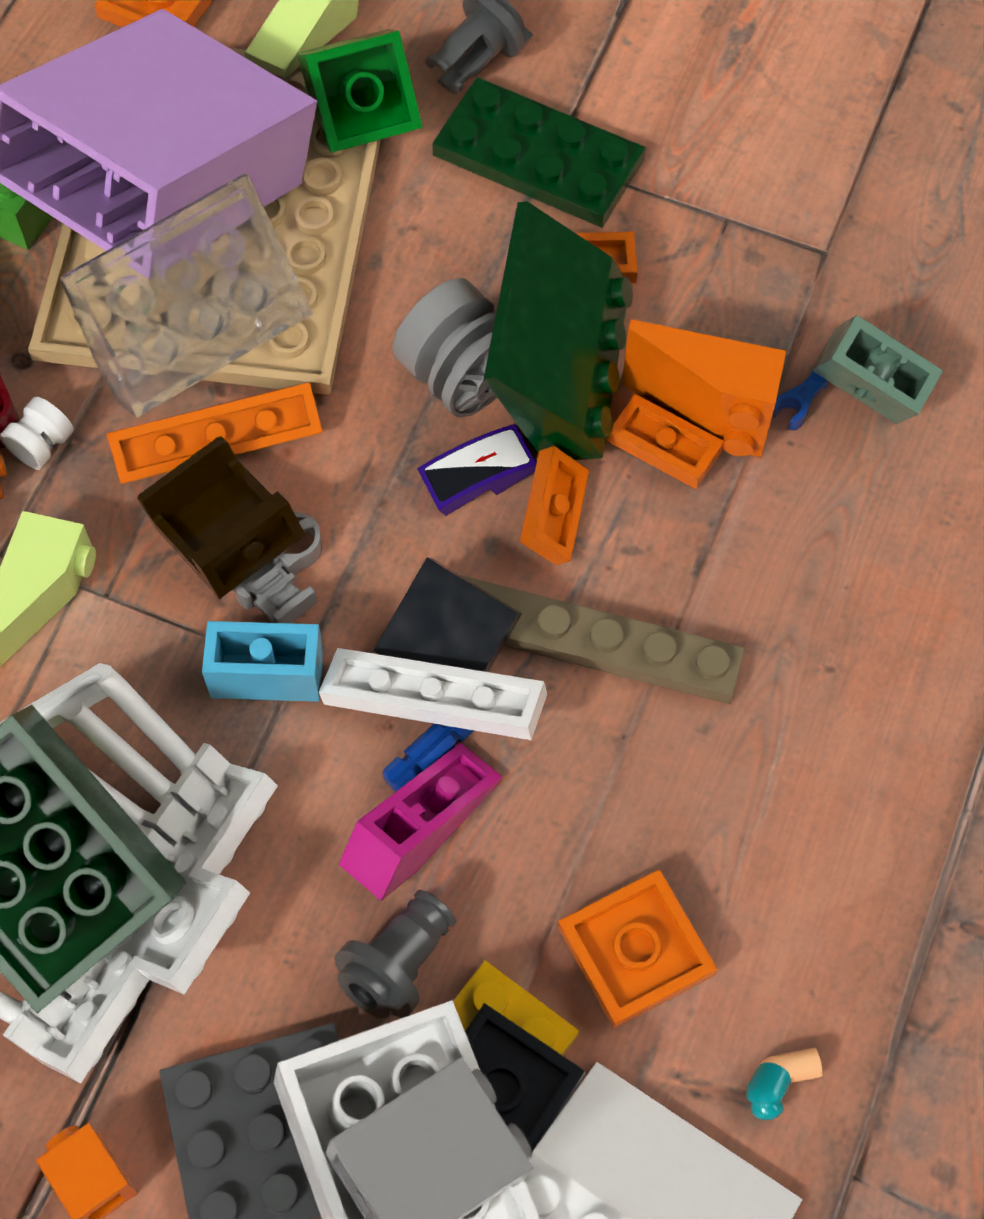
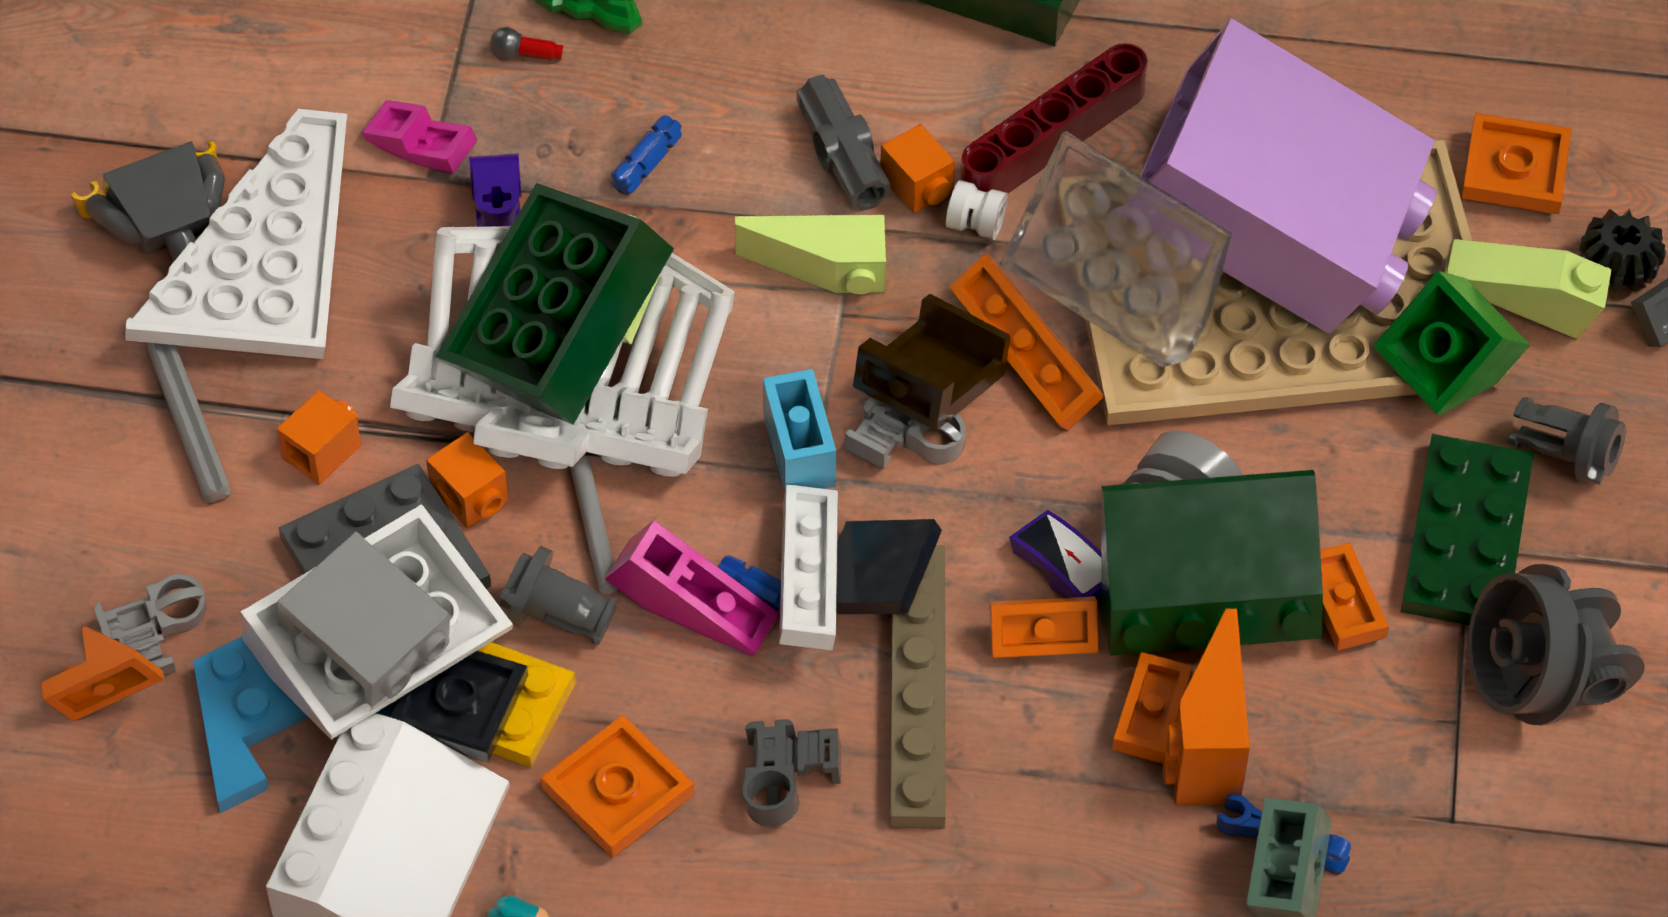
camera: 75 degrees right, 10 degrees down
(206, 1017) = (468, 480): none -> orange brick
(312, 900) = (593, 523): none -> light grey bar
(638, 774) = (786, 755): none -> dark grey piece
(697, 92) = (1547, 647): none -> dark grey piece

